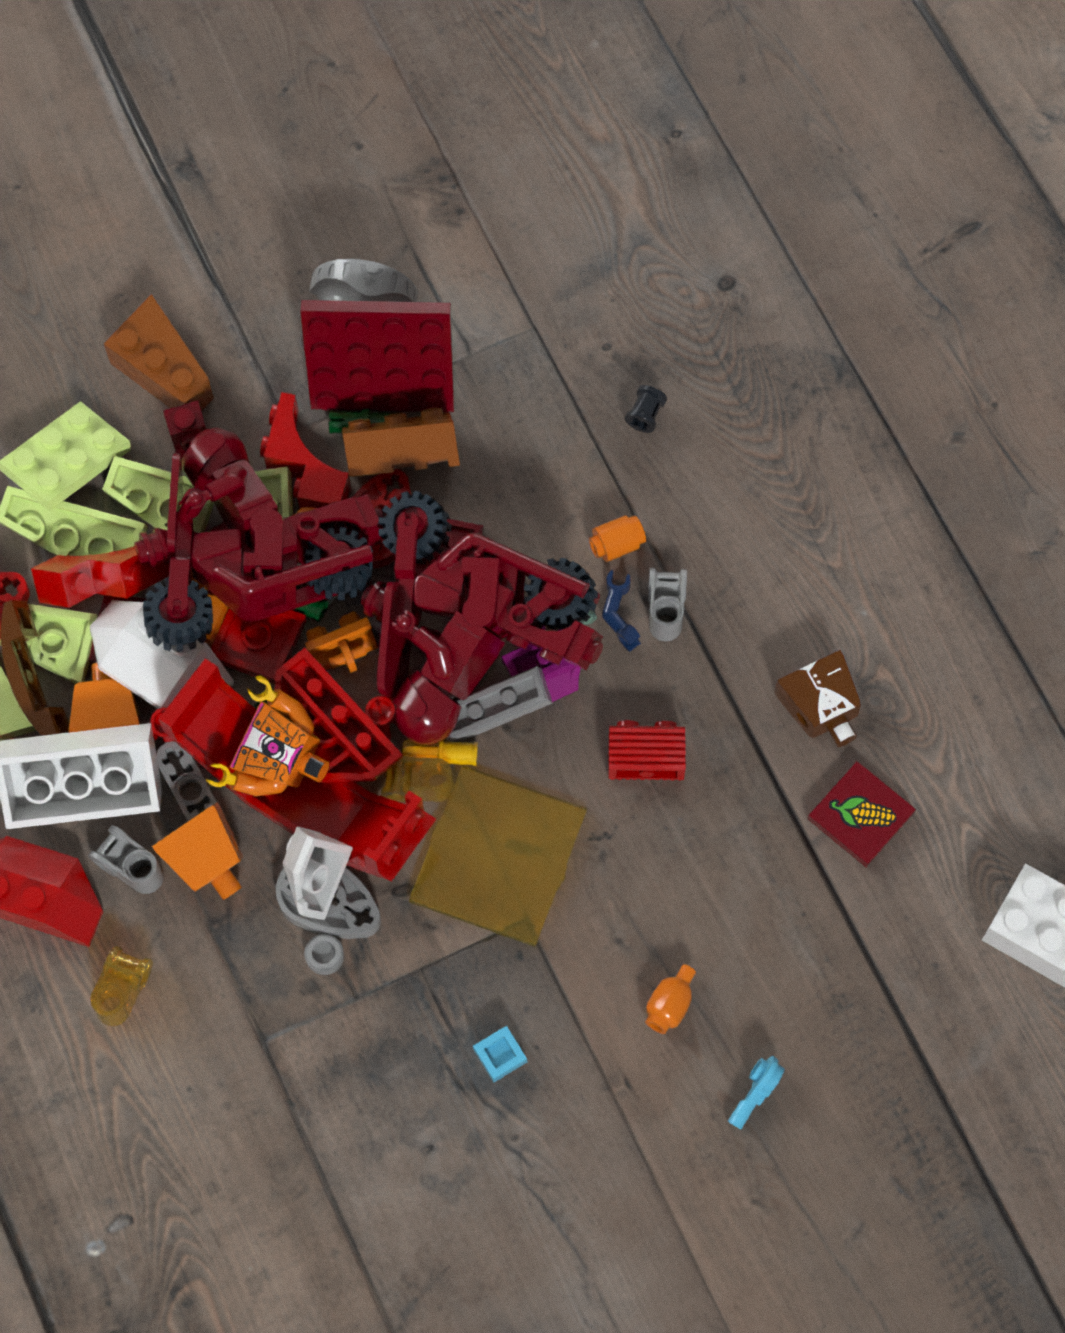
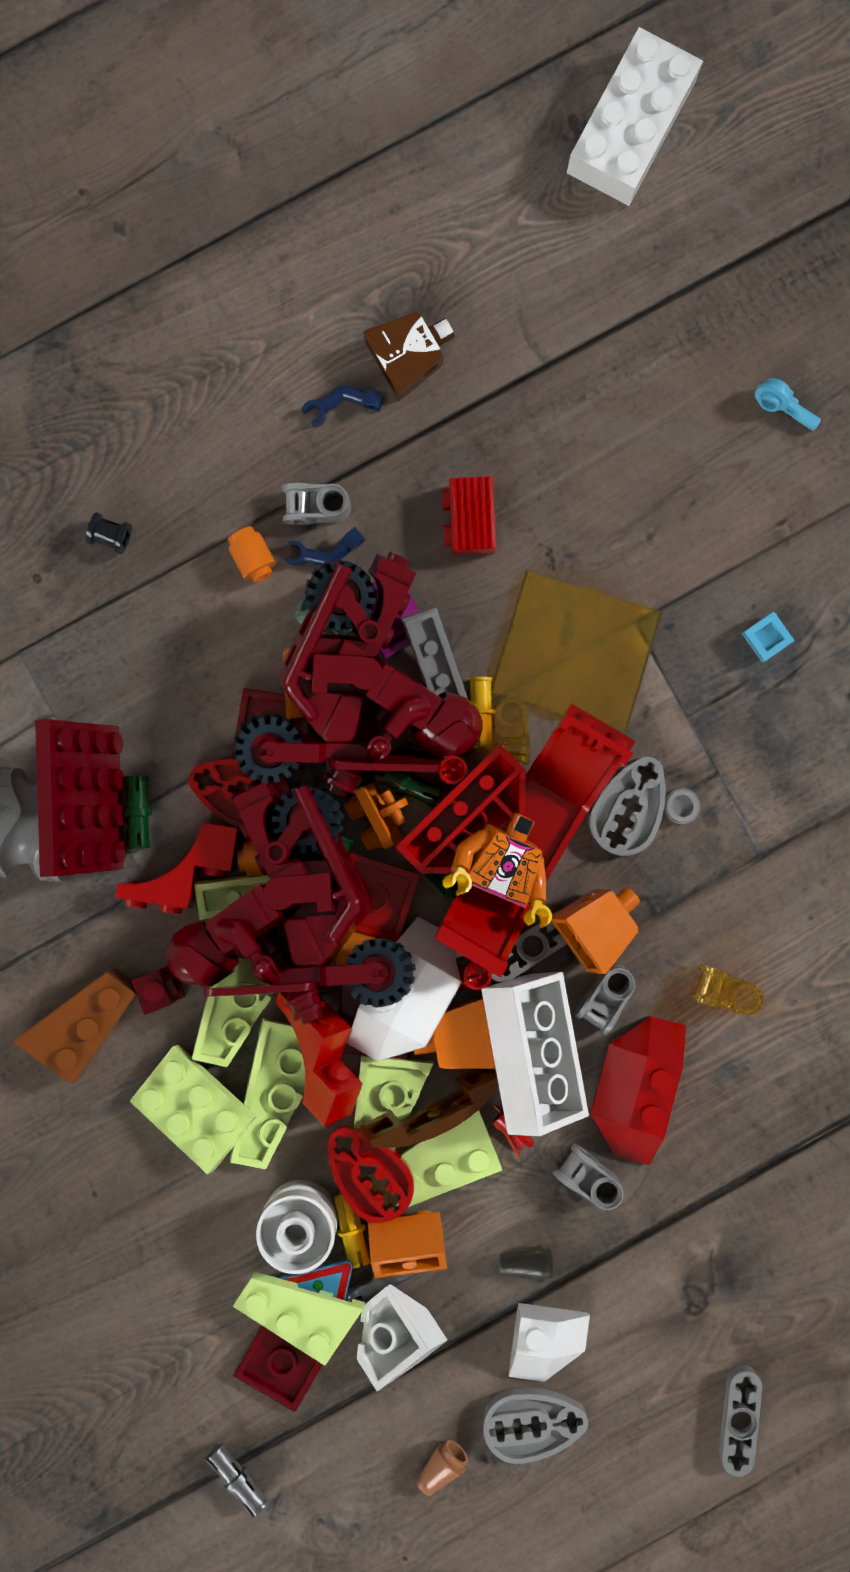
camera: 95 degrees left, 20 degrees up
(314, 870) = (614, 818): white slope -> none
(366, 683) = (408, 784): none -> dark green pin
(400, 442) = (164, 770): dark orange wedge -> none
(670, 1001) = (709, 484): orange plant -> none
(778, 629) = (366, 398): none -> dark blue arm
(861, 814) = (517, 315): dark red tile -> none

